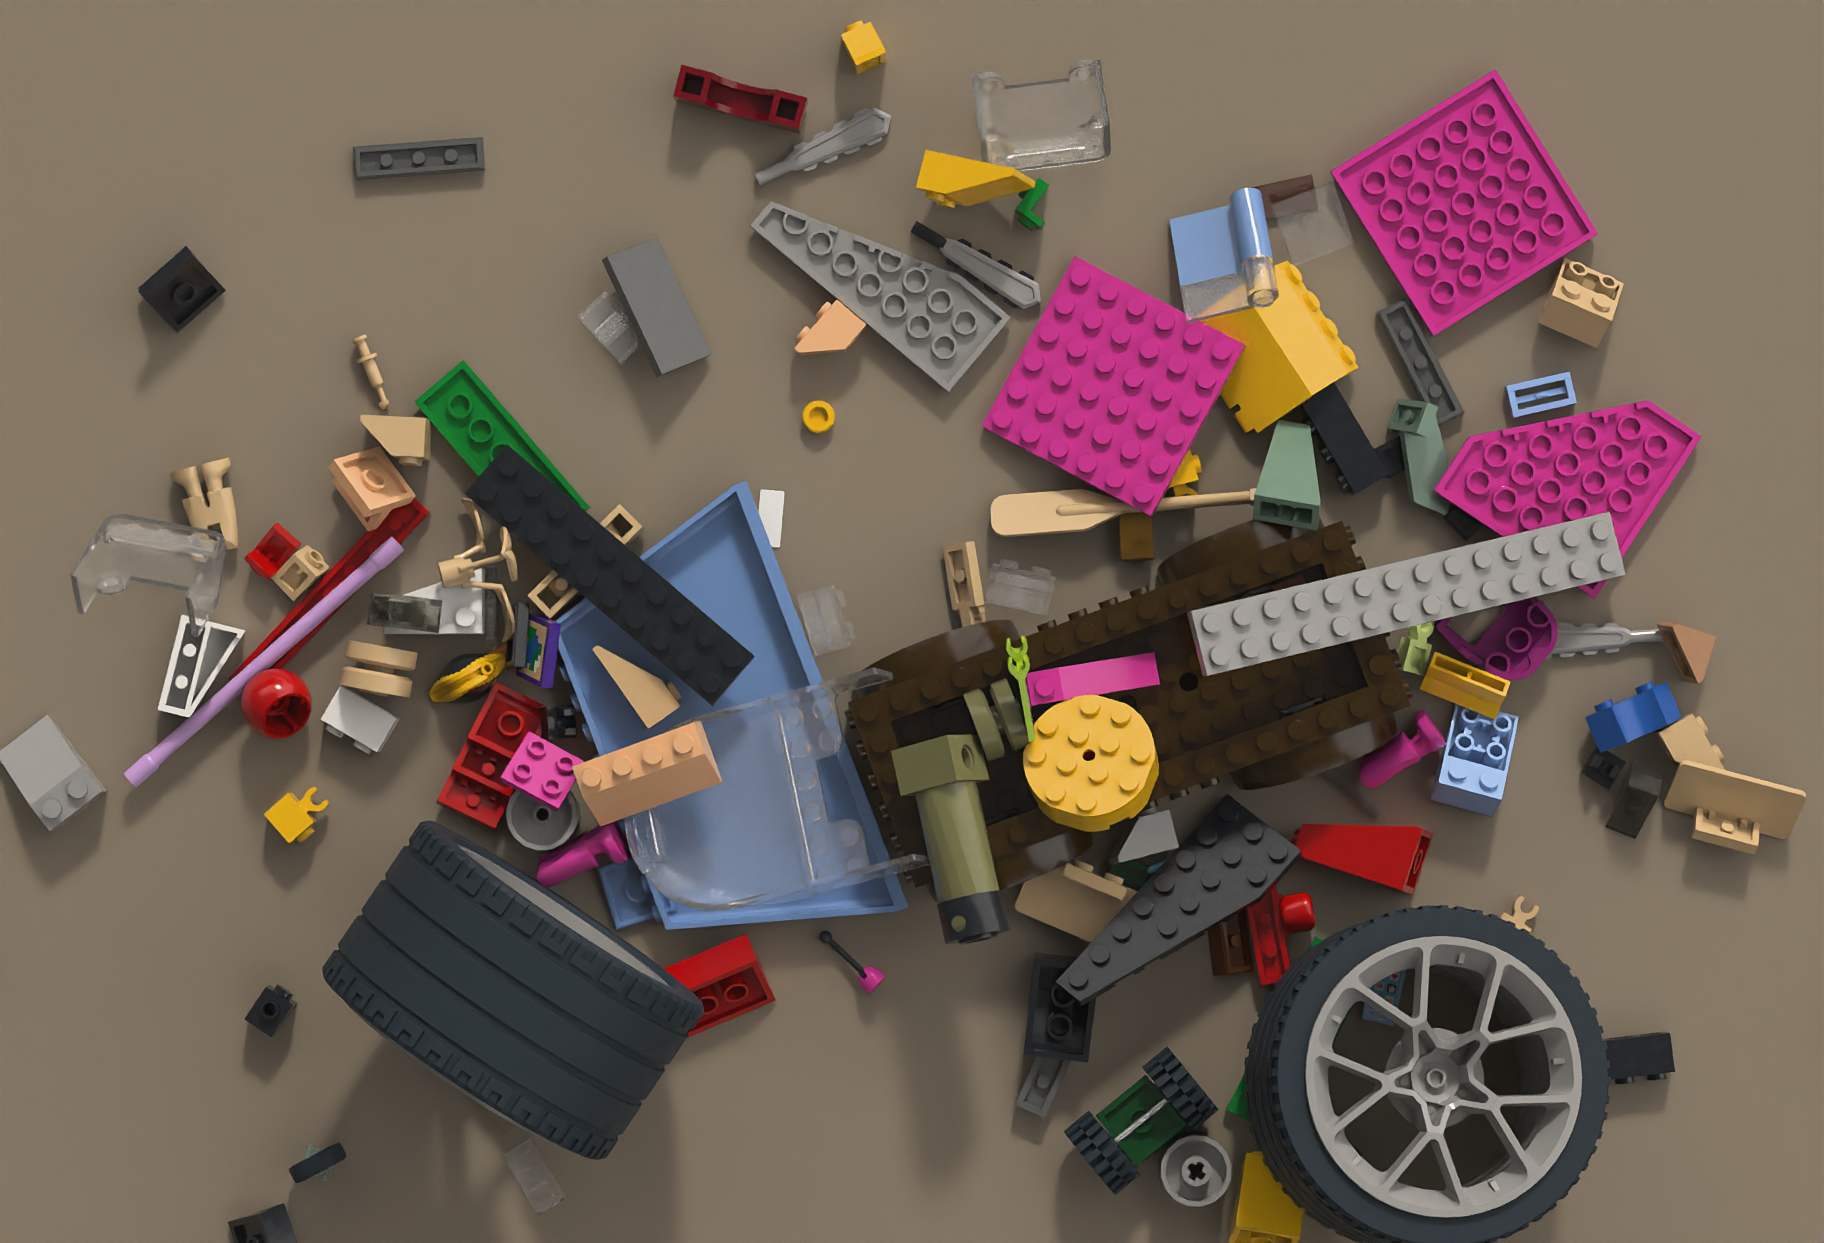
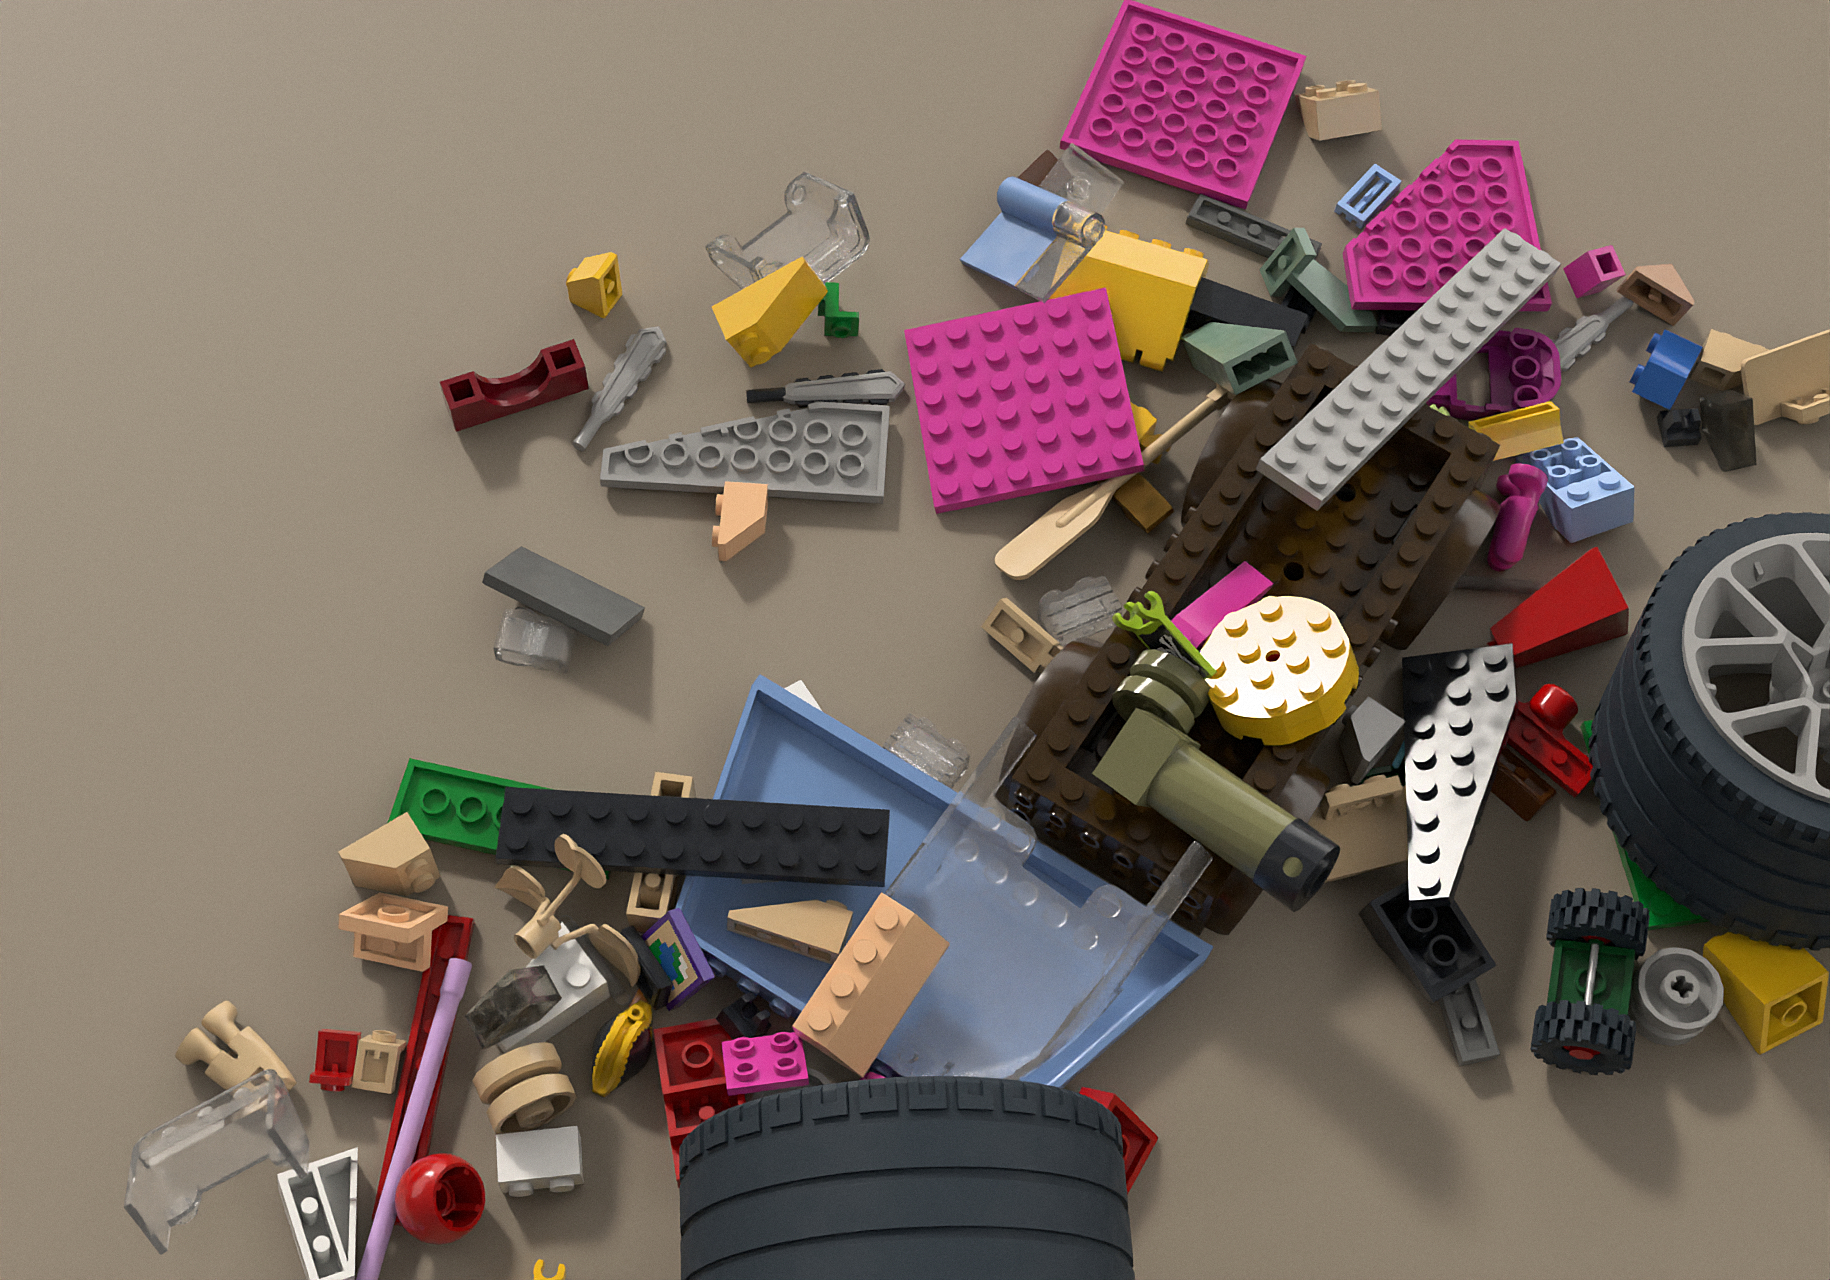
camera: 40 degrees left, 25 degrees down
(181, 289) = (75, 876): black bracket -> none
(371, 368) = (314, 823): tan piece -> none
(419, 158) = (244, 623): dark grey tile -> none
(818, 416) = (783, 596): yellow tile -> none
(868, 977) = (1228, 1046): hinge -> none
(1649, 597) = (1594, 271): none -> dark pink brick

